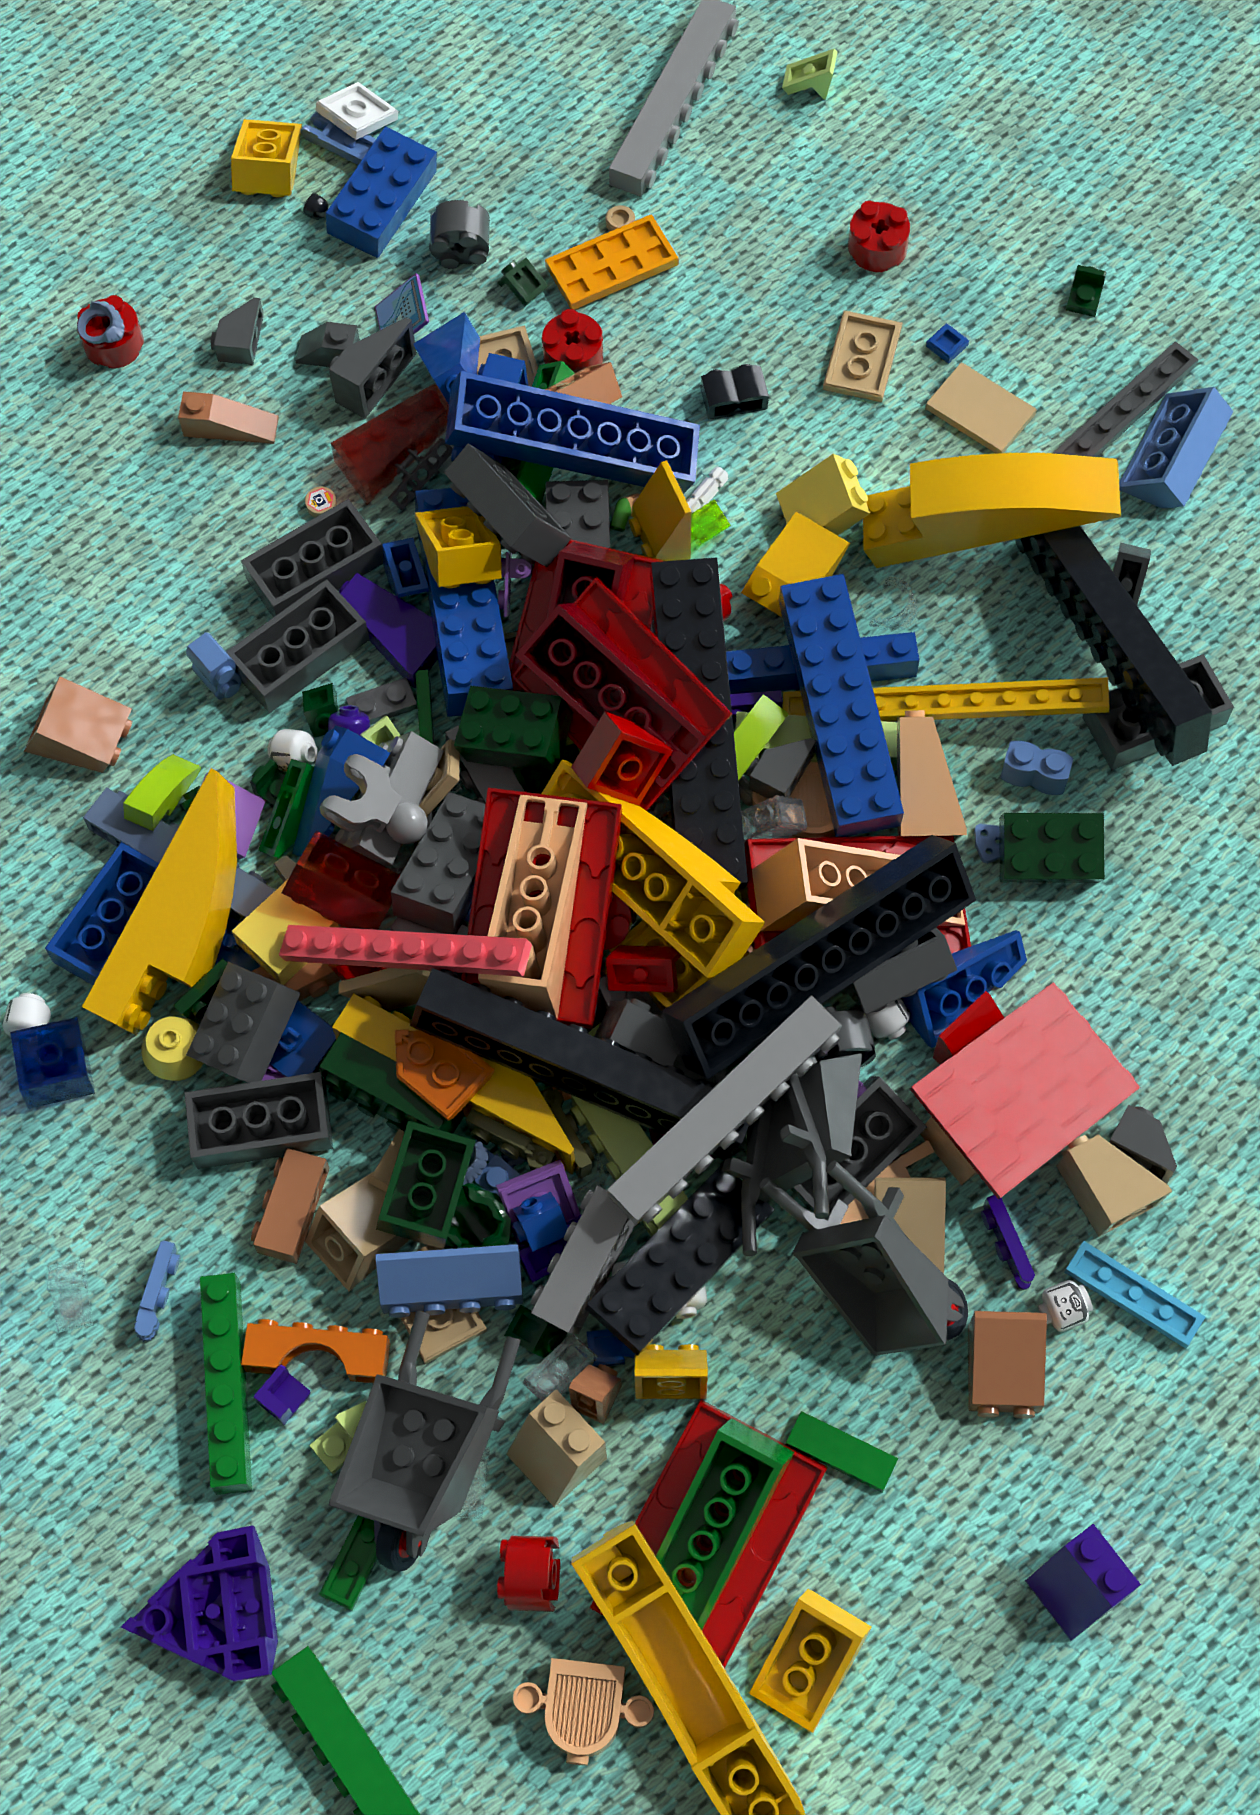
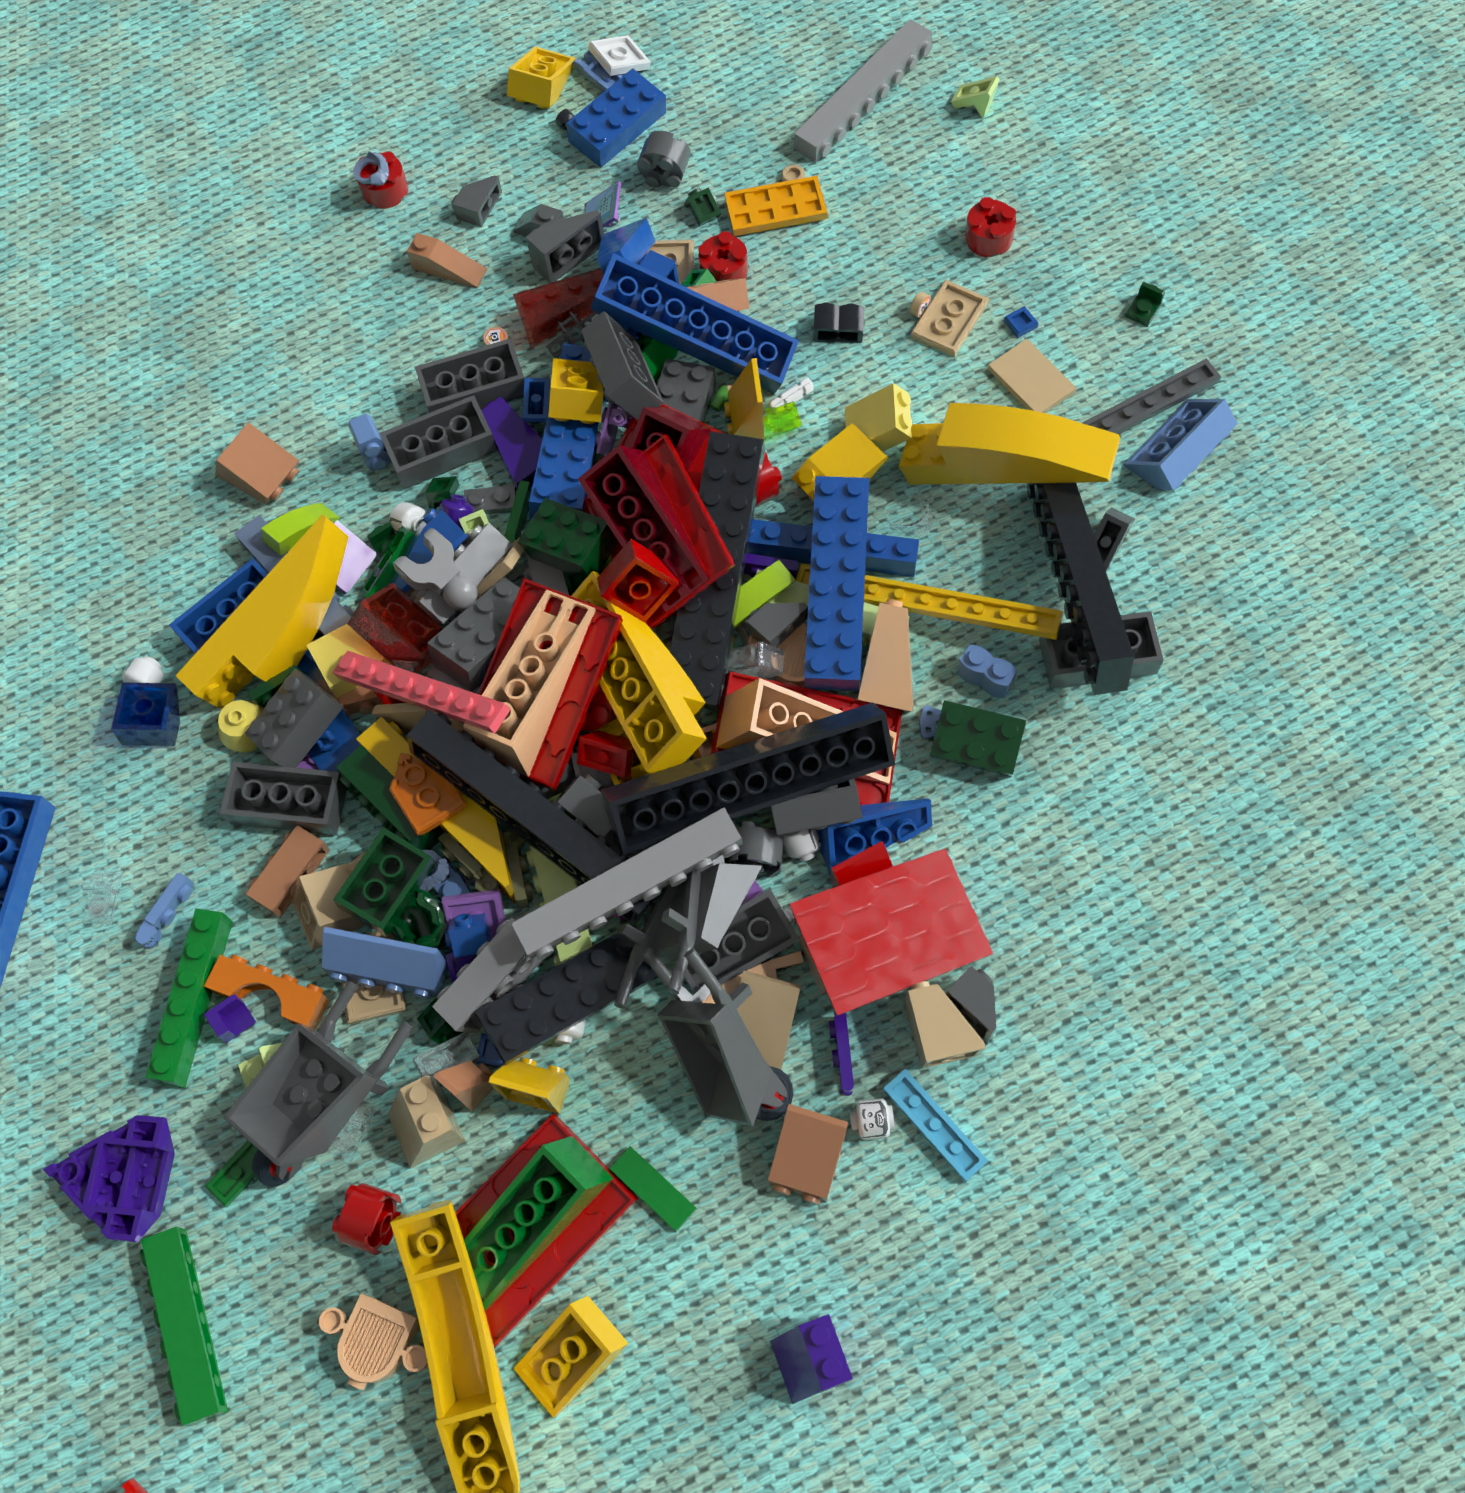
camera: 20 degrees right, 0 degrees up
(824, 348) = (920, 304): none -> tan tile

